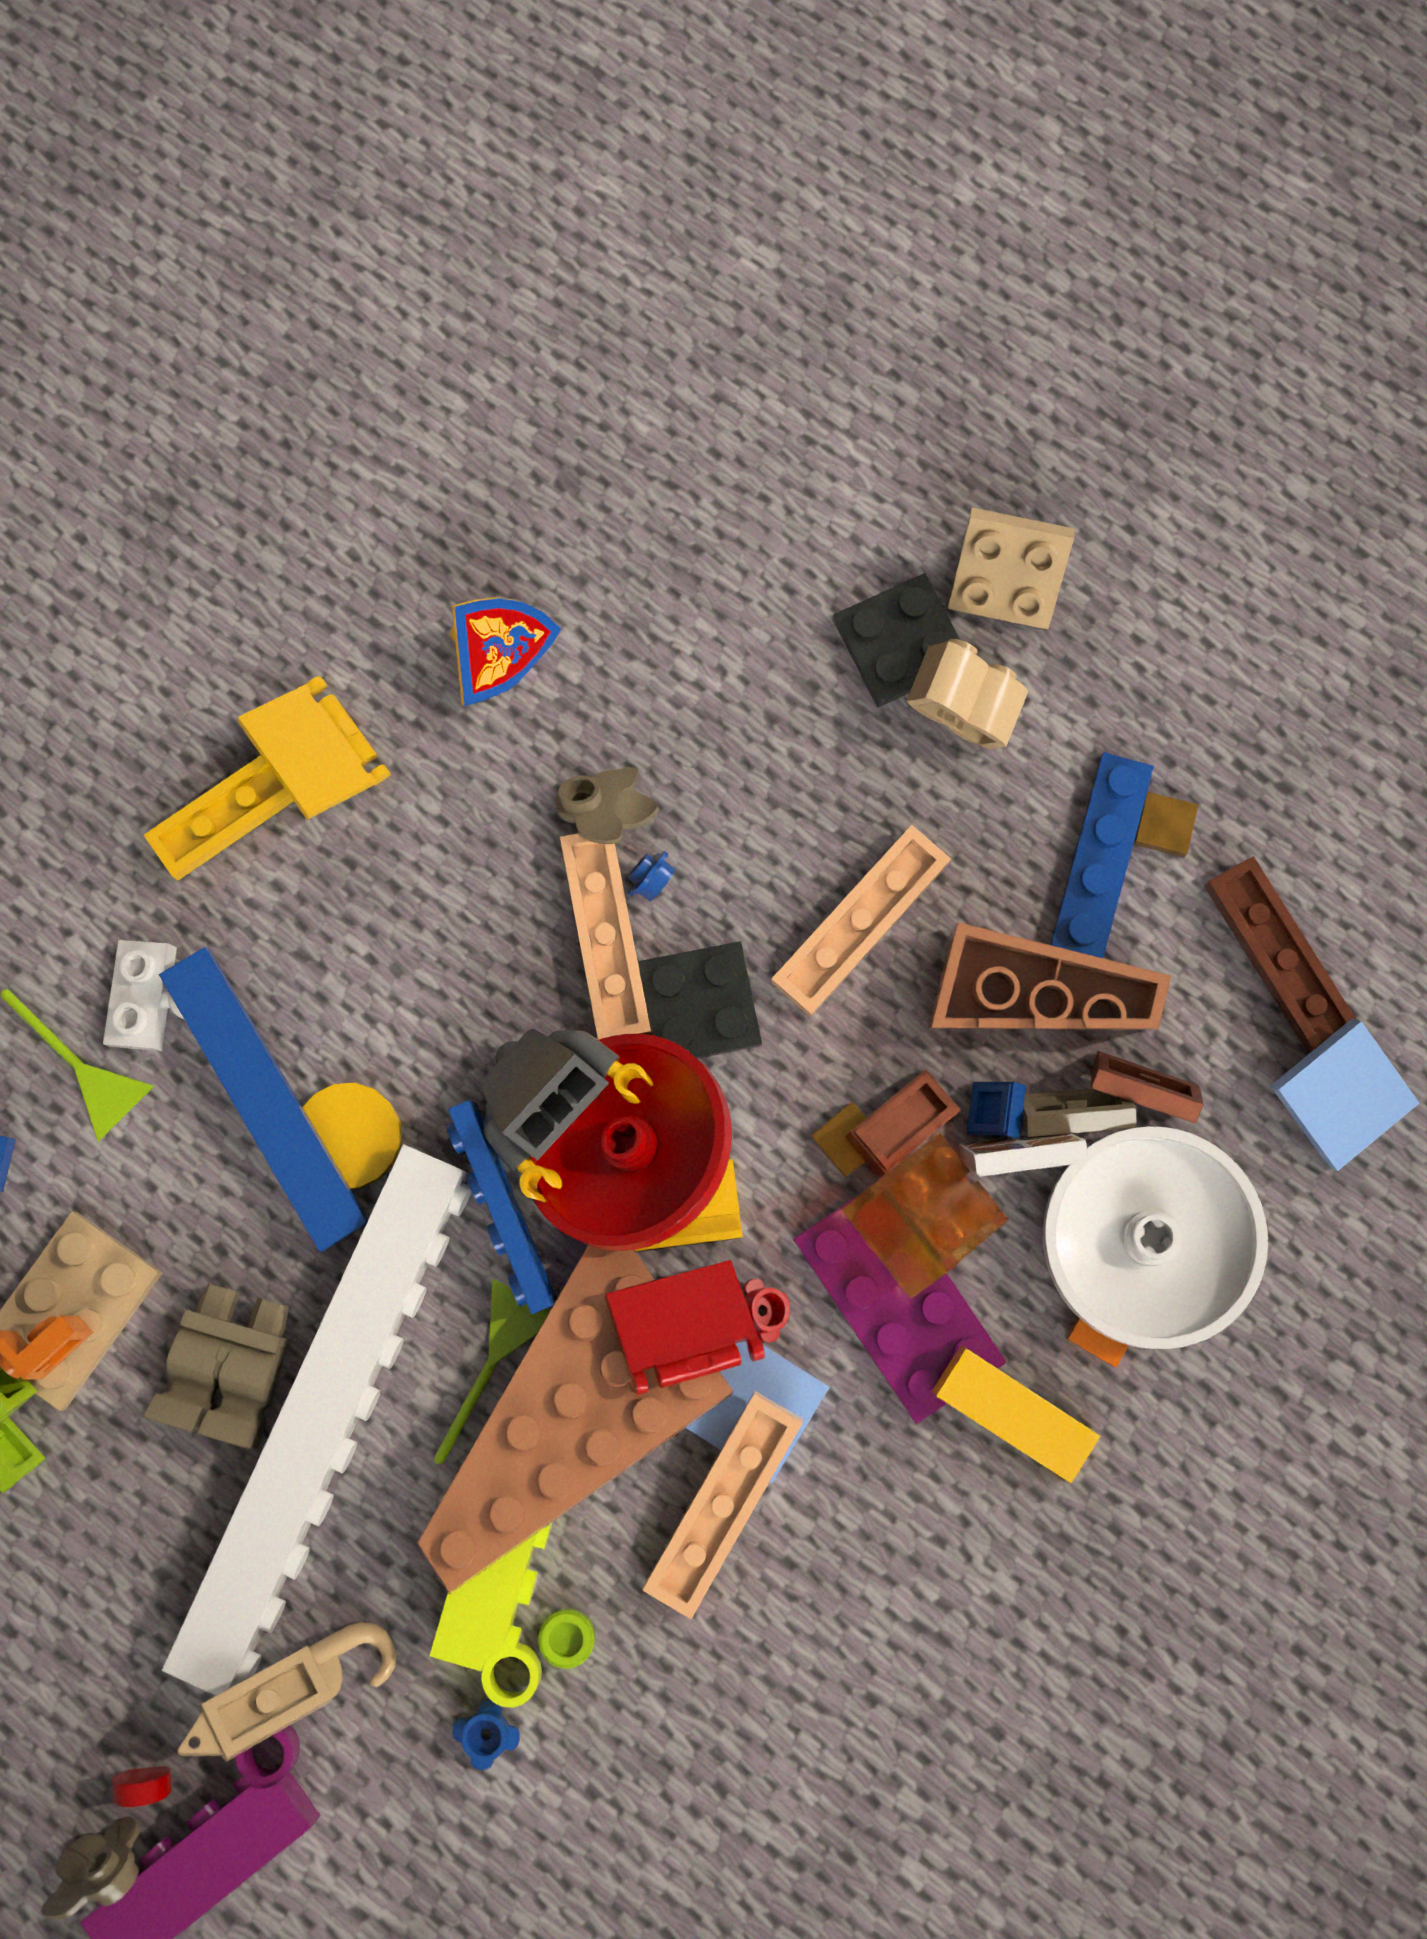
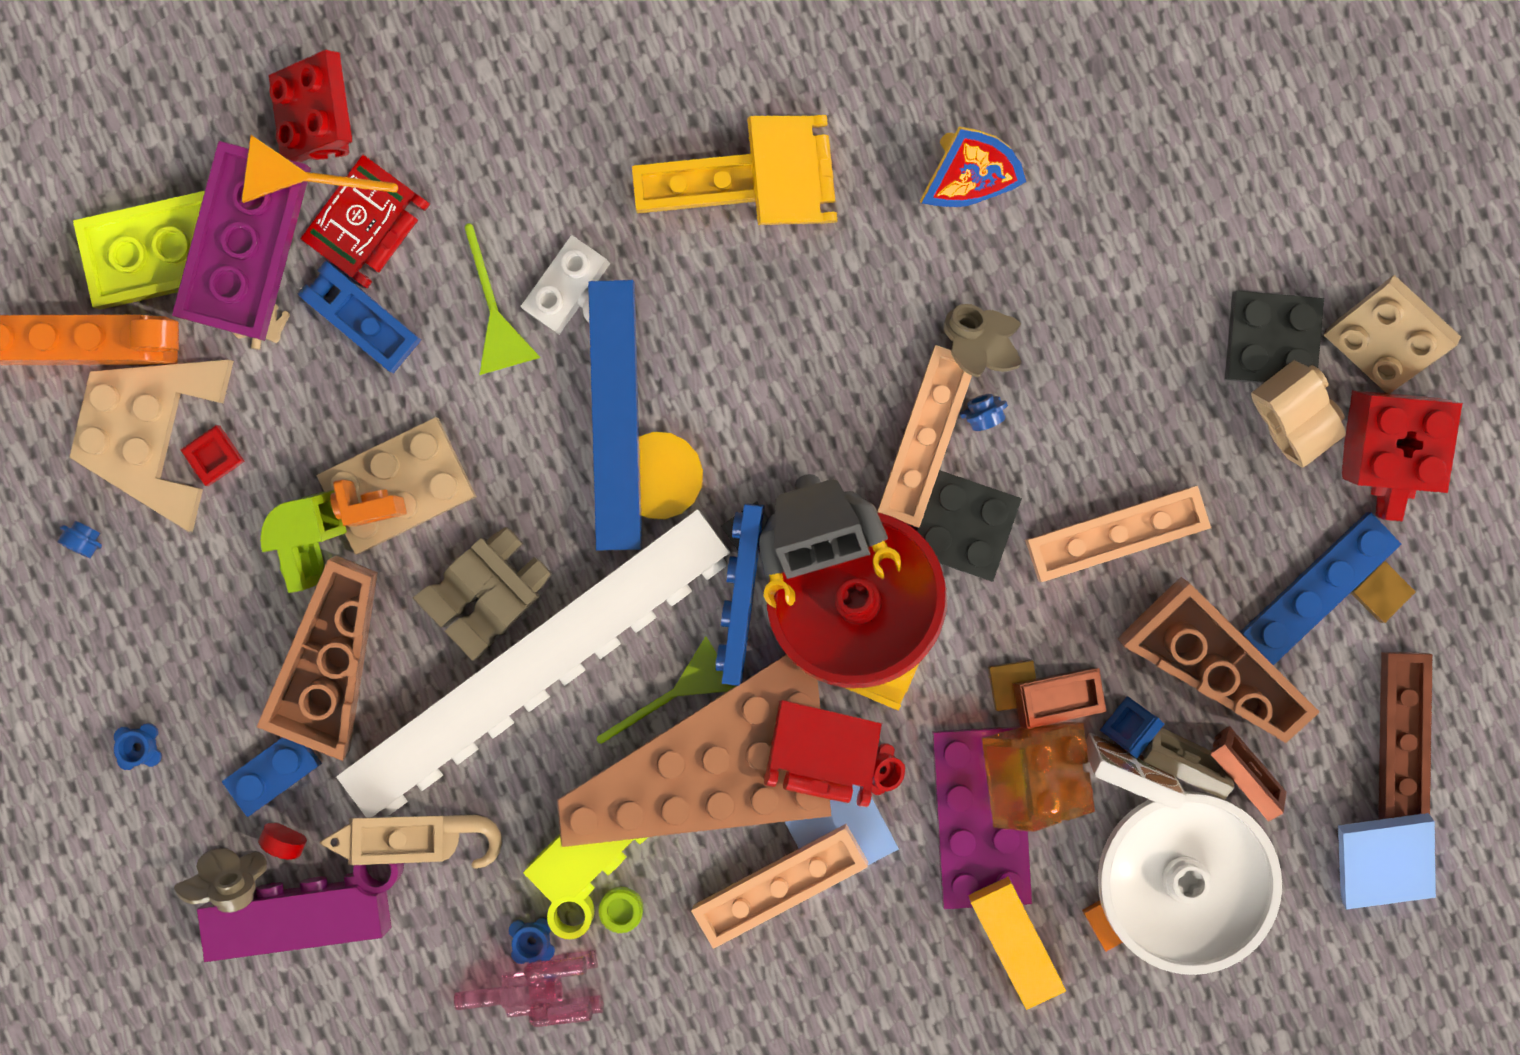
camera: 30 degrees right, 10 degrees up
(85, 1549) = (323, 670): none -> nougat wedge
(90, 1714) = (270, 774): none -> blue plate
(523, 1786) = (539, 992): none -> clear pink plant
(1097, 696) = (1417, 464): none -> red hinge

